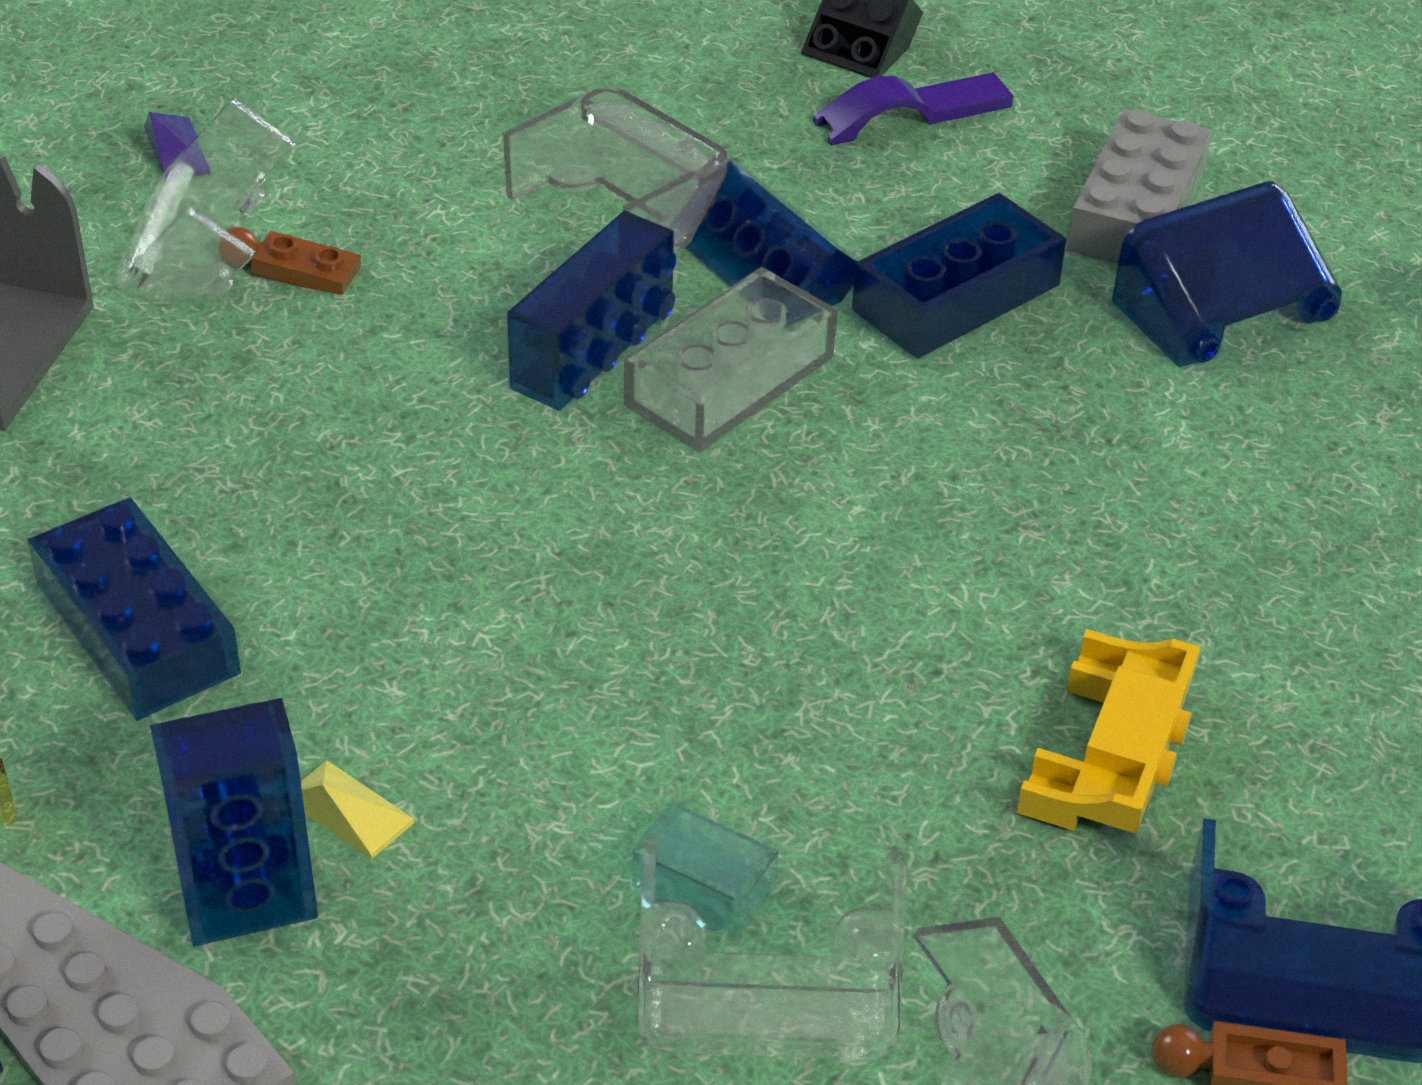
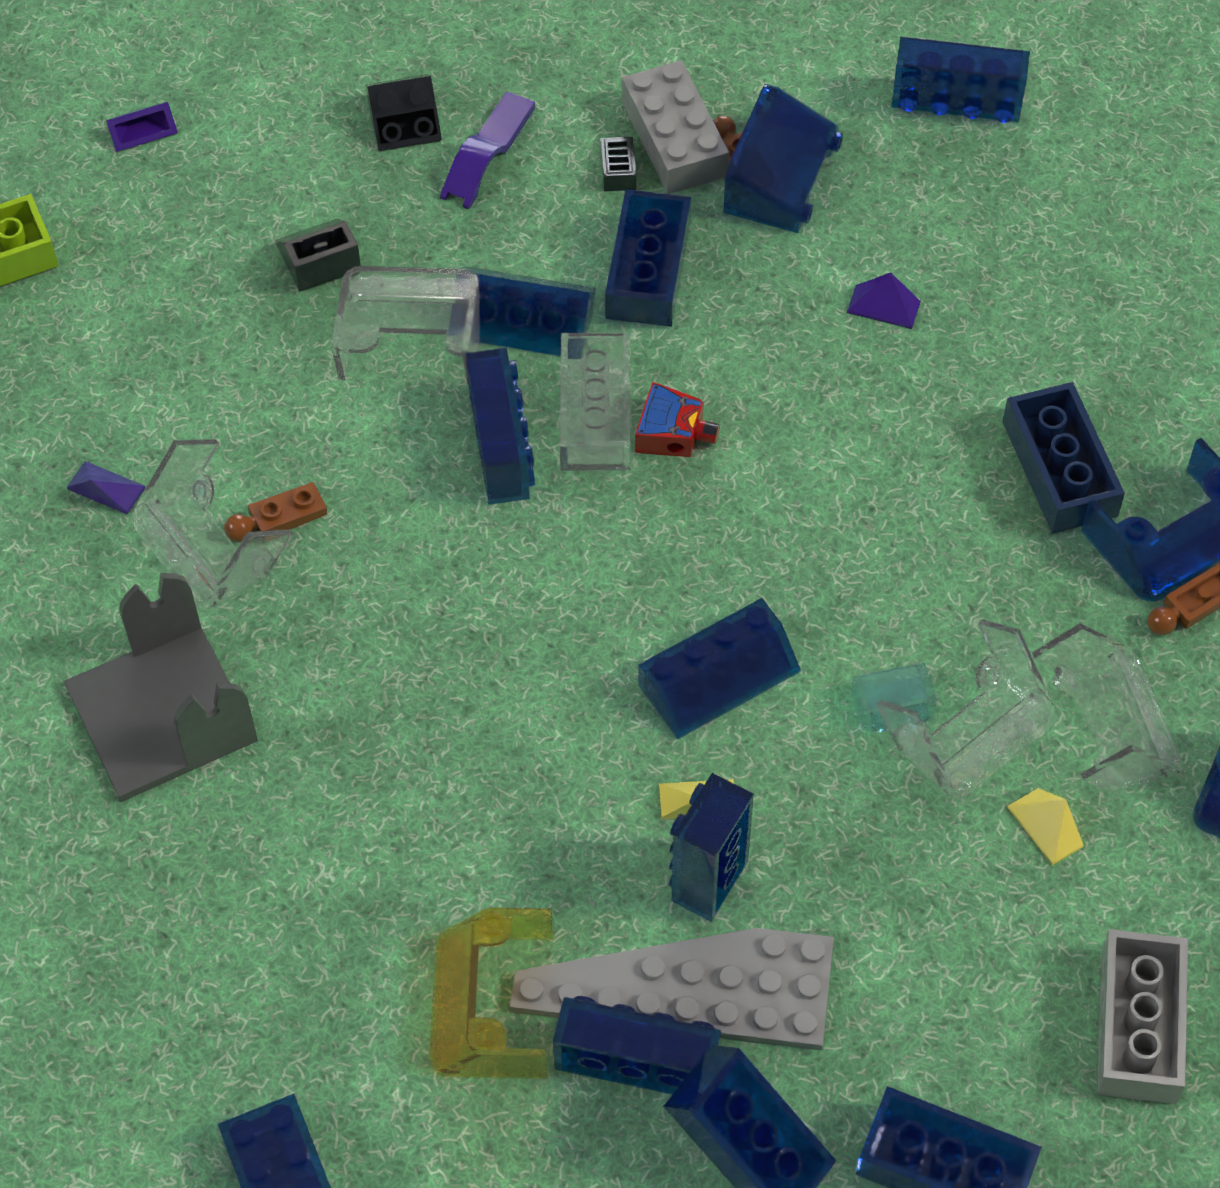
camera: 40 degrees left, 15 degrees up
(134, 607) = (476, 782): clear blue brick -> none
(537, 689) = (718, 668): none -> clear blue slope
(639, 74) = (319, 253): none -> black slope
(793, 434) = (672, 423): none -> torso
(1042, 190) = (618, 179): none -> black slope
(1131, 741) = (1000, 477): yellow bracket -> none
(1207, 485) = (885, 301): none -> dark purple slope
(1242, 764) = (1061, 455): none -> dark blue brick

